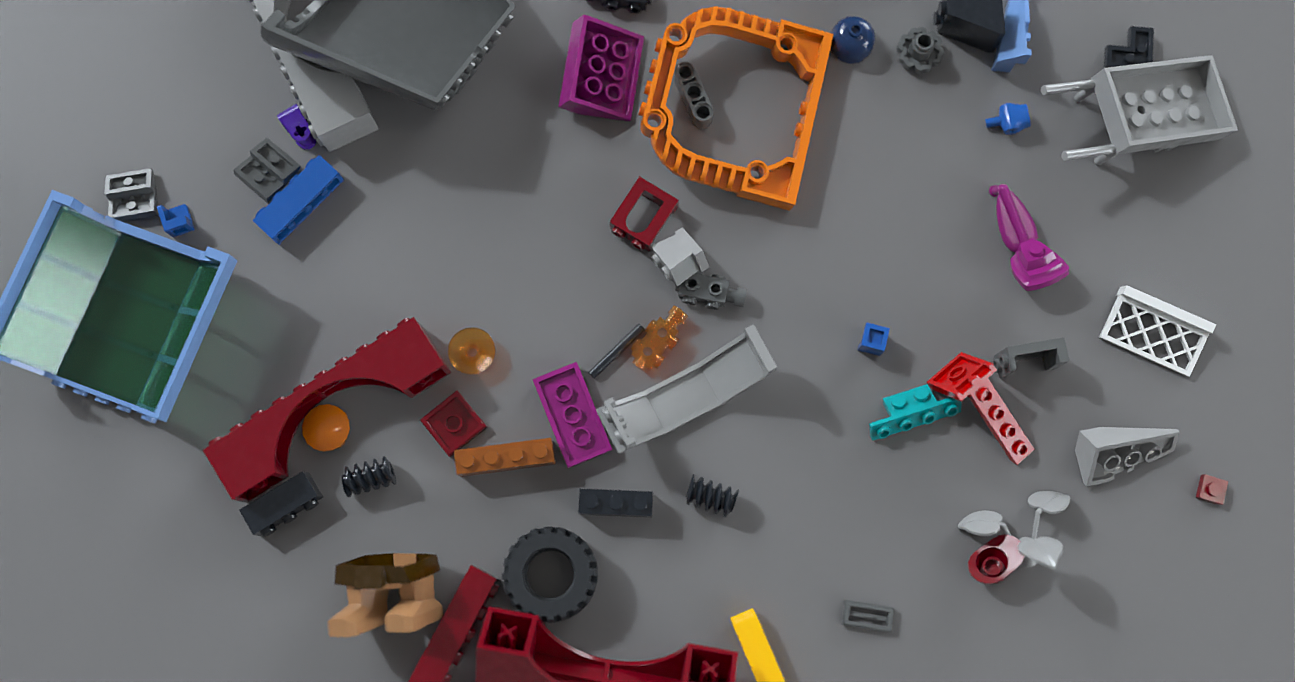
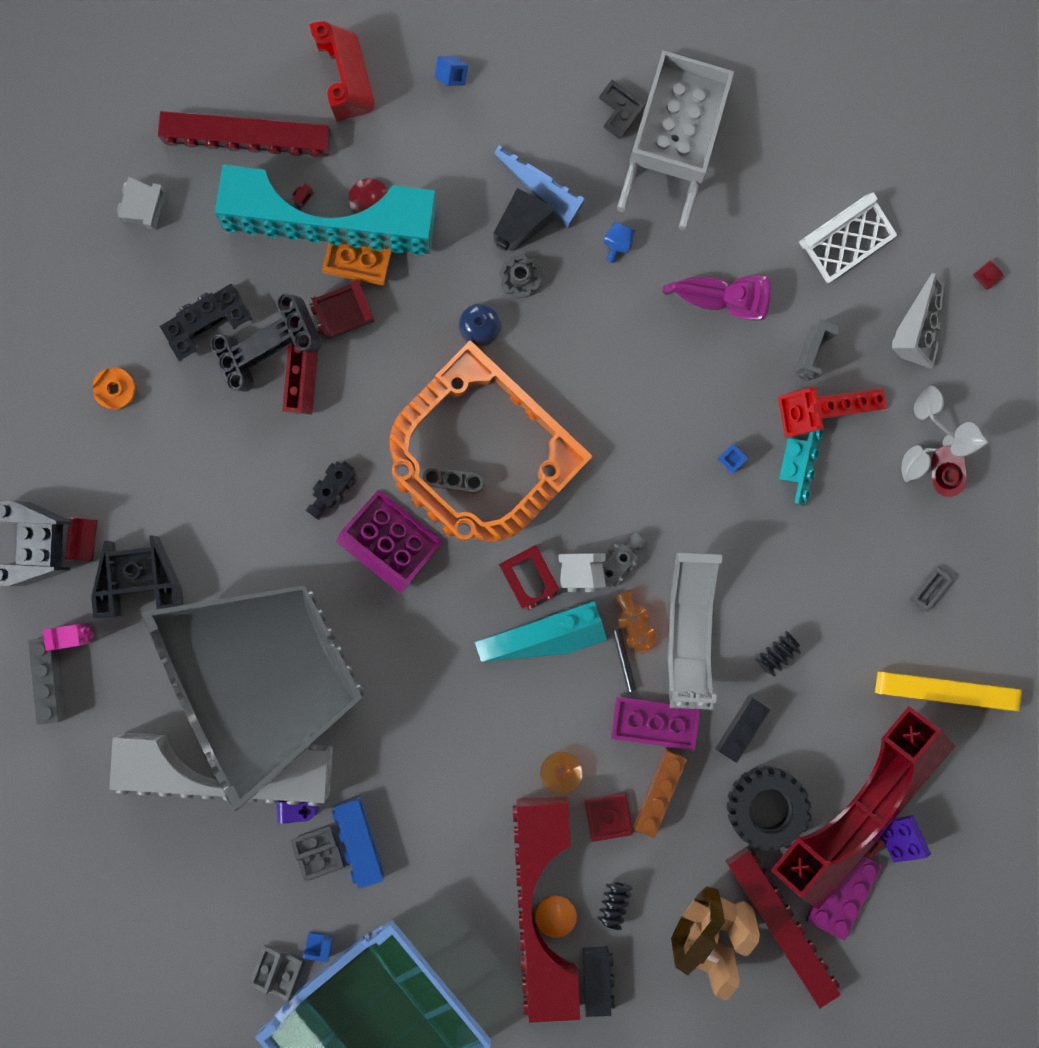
camera: 60 degrees left, 10 degrees up
(599, 265) = (548, 636): none -> teal wedge

